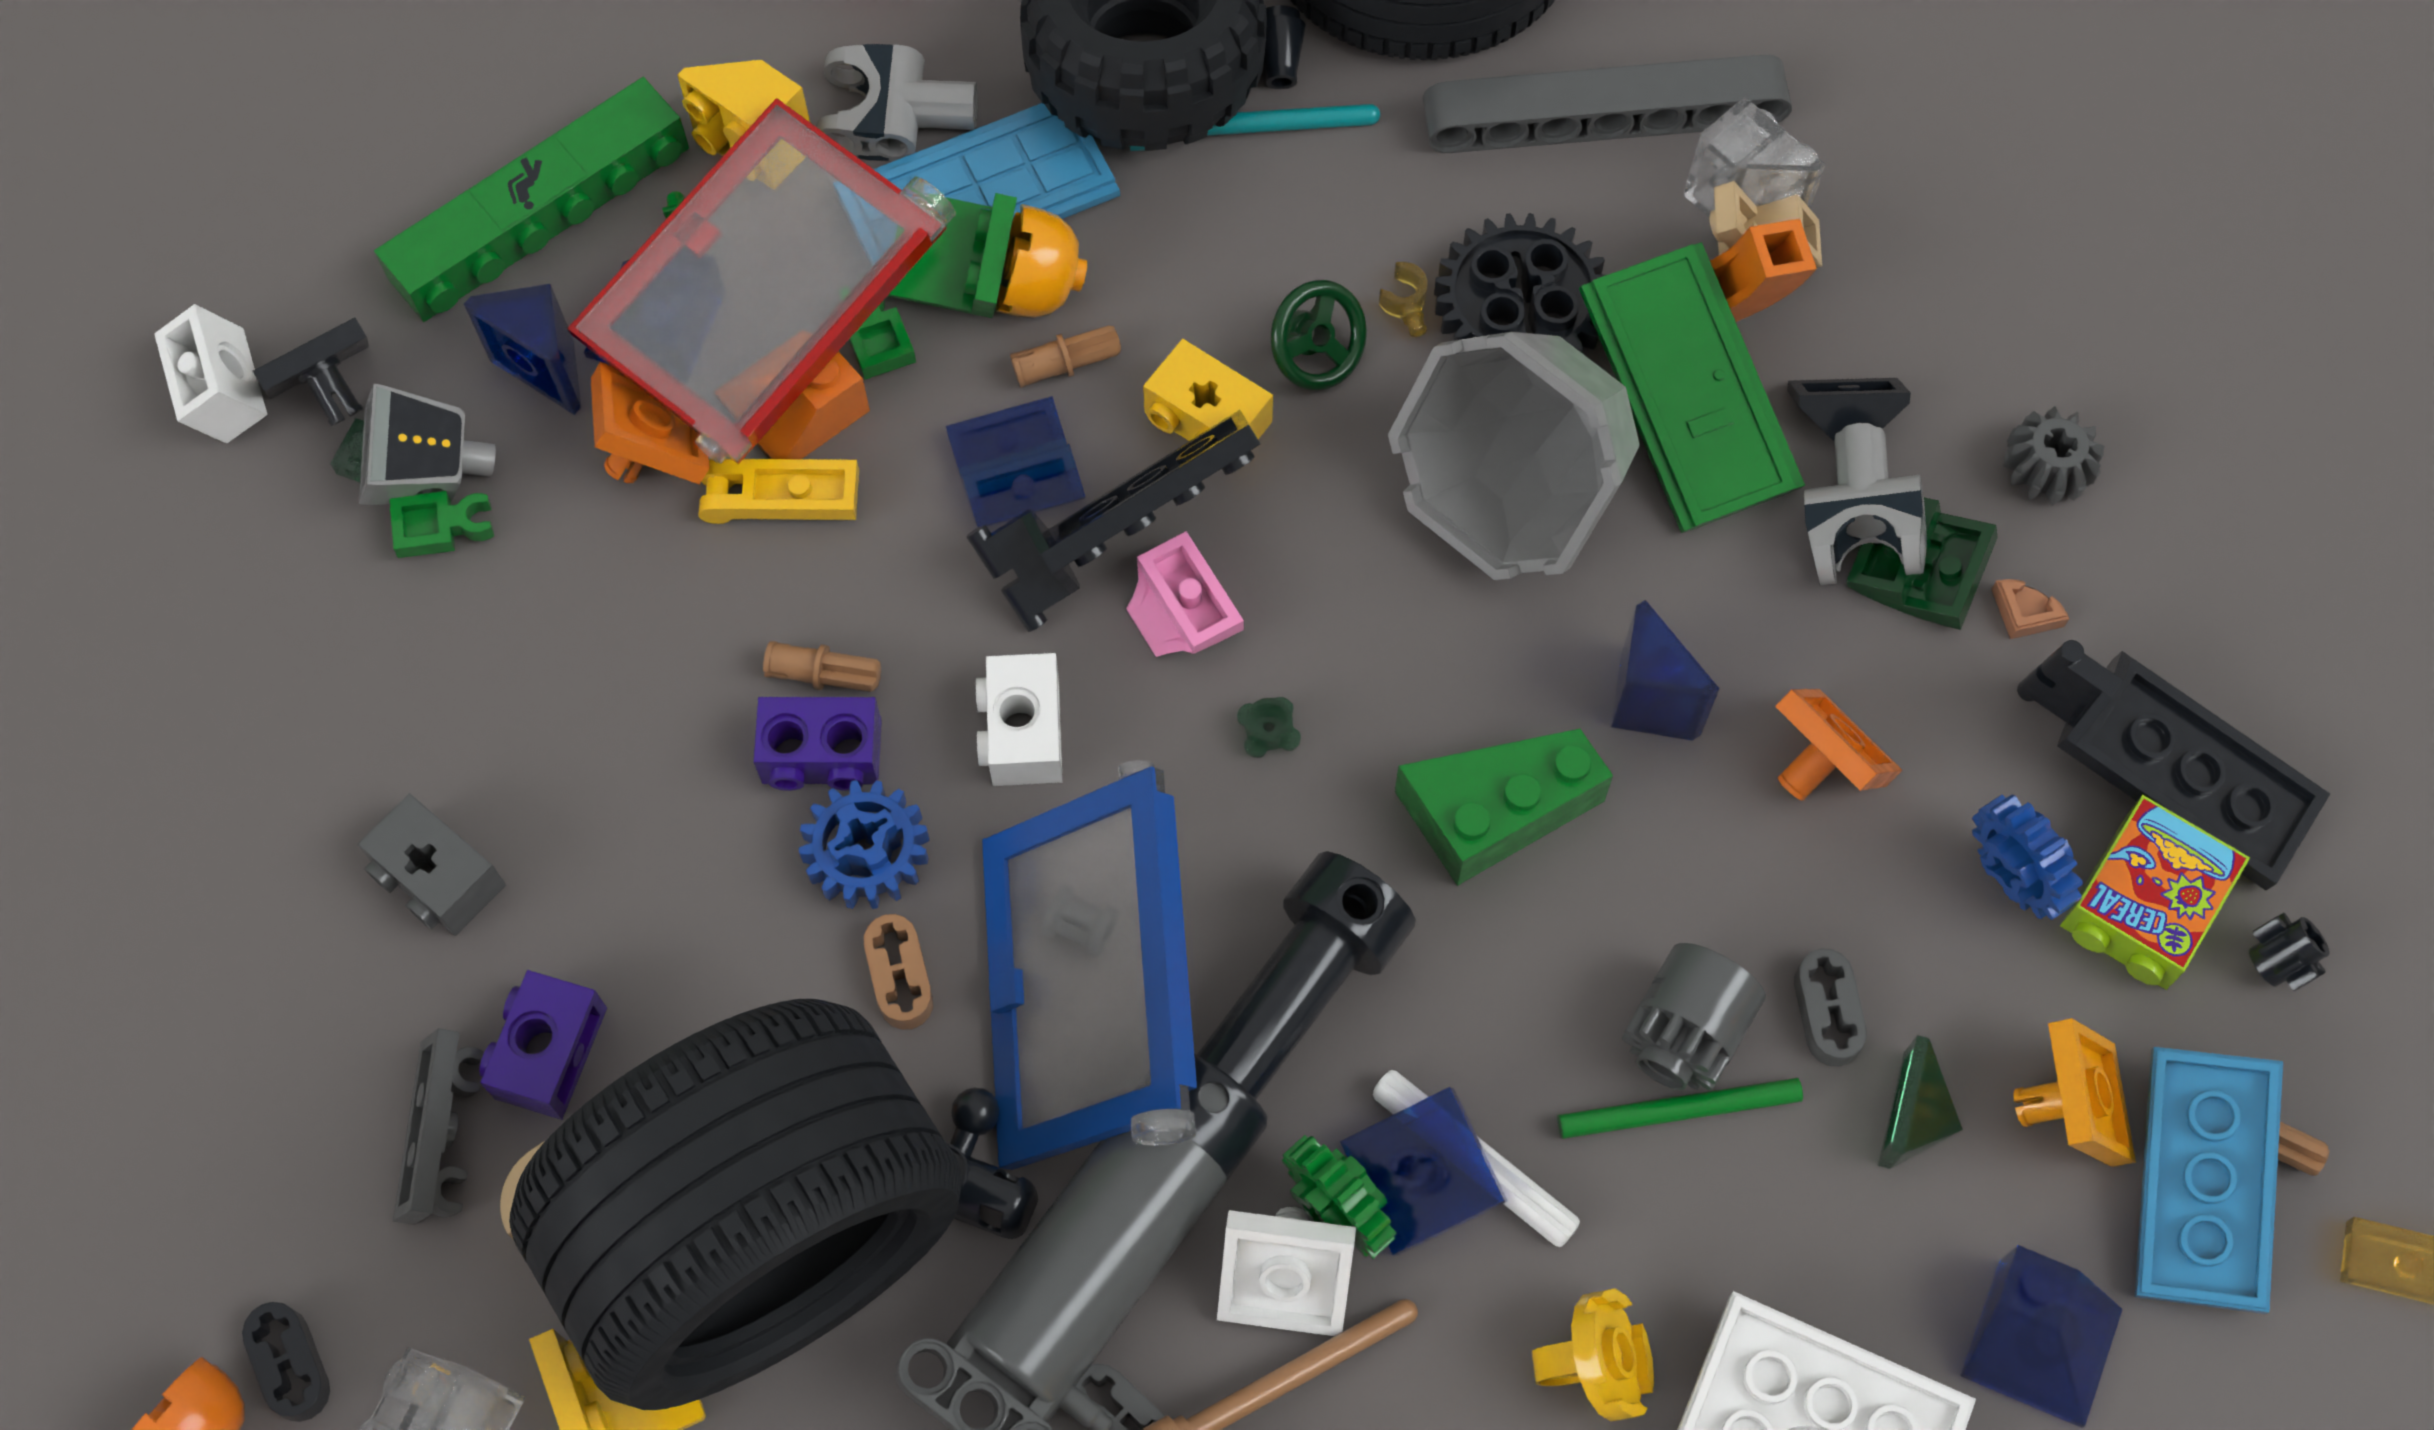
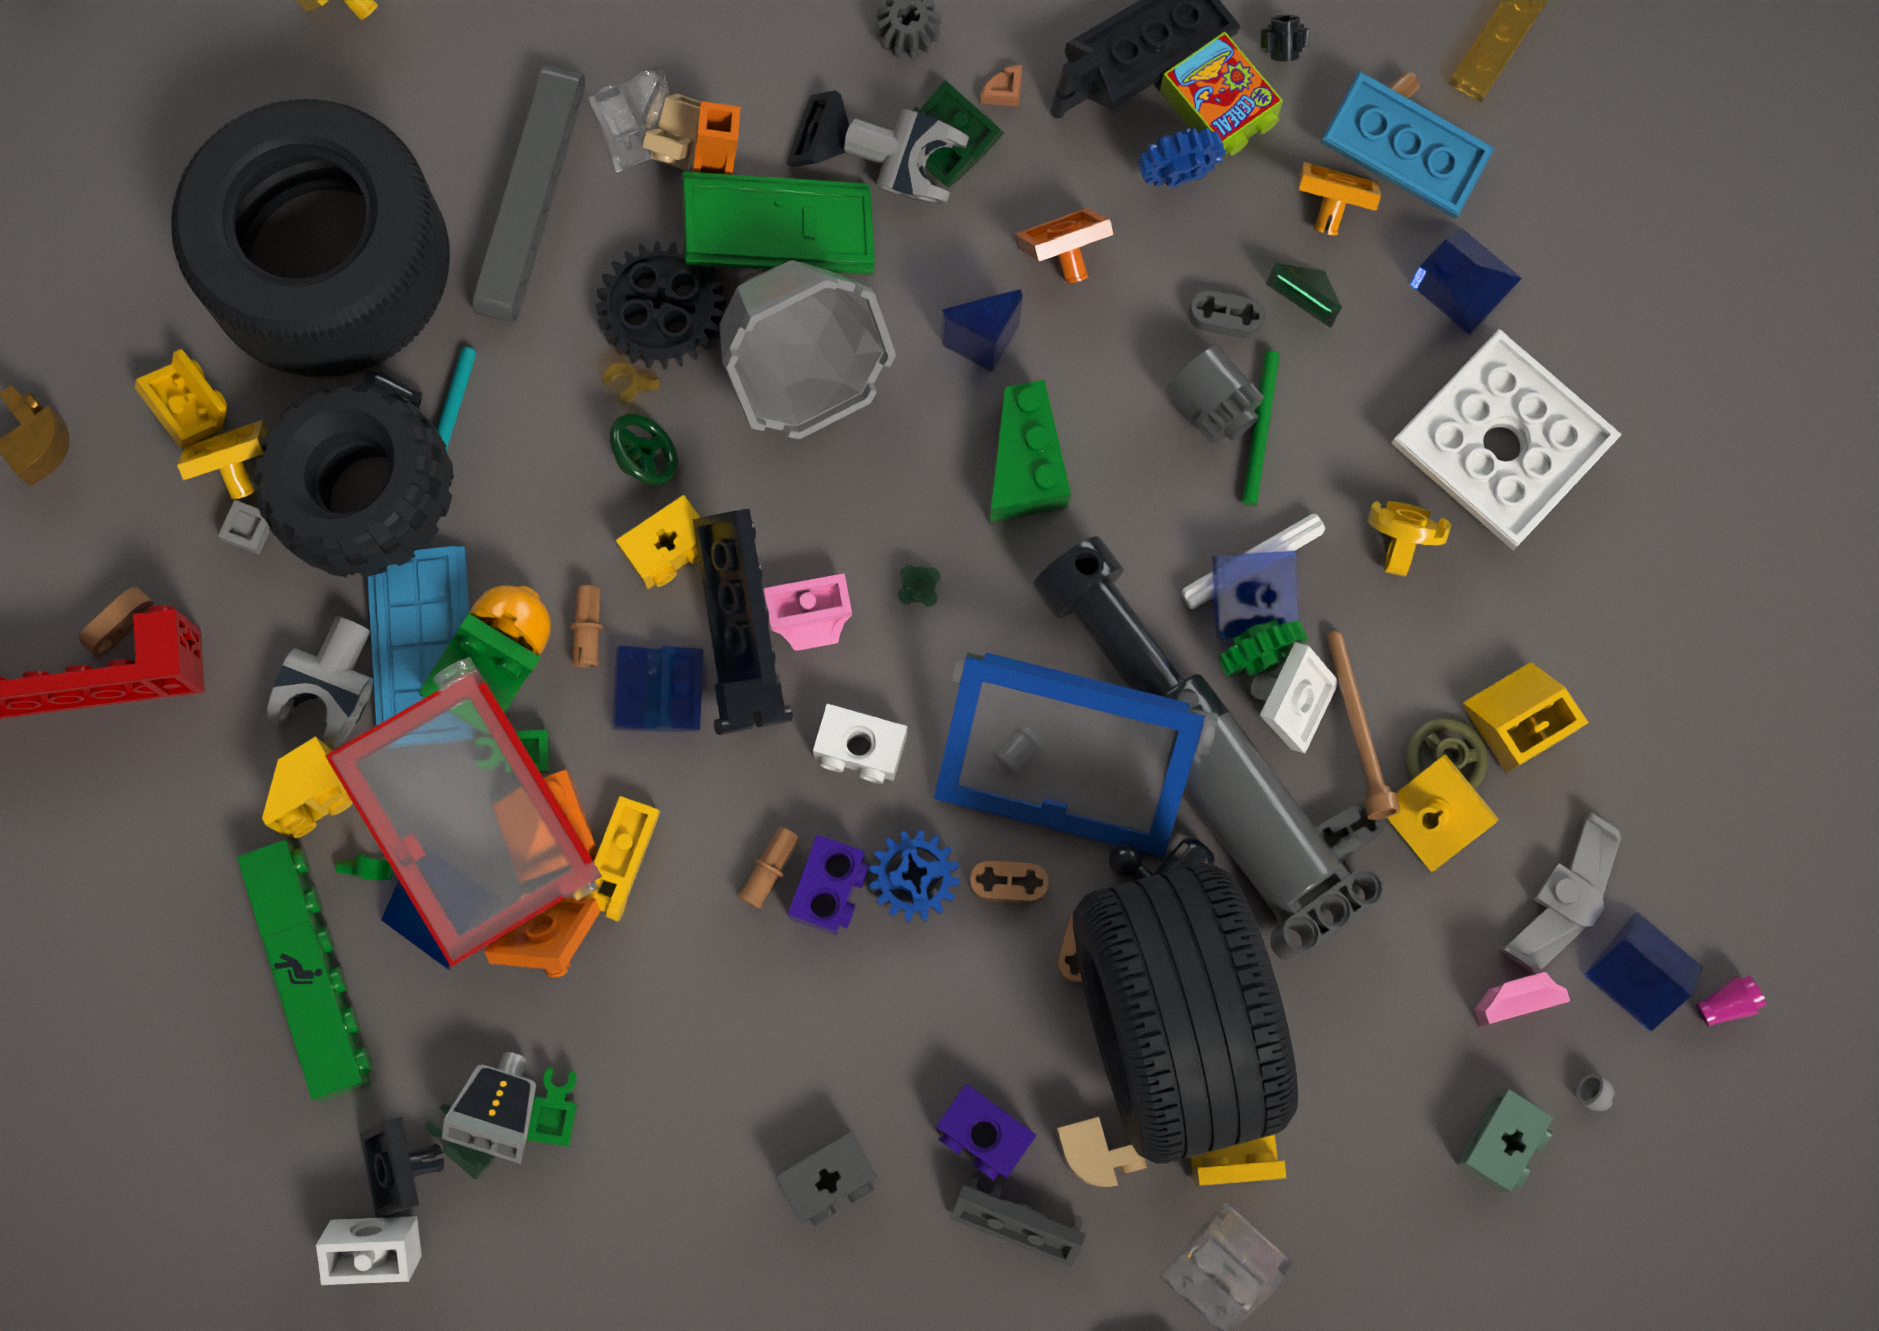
camera: 75 degrees left, 10 degrees up
(529, 340) = (439, 999): clear blue slope -> none

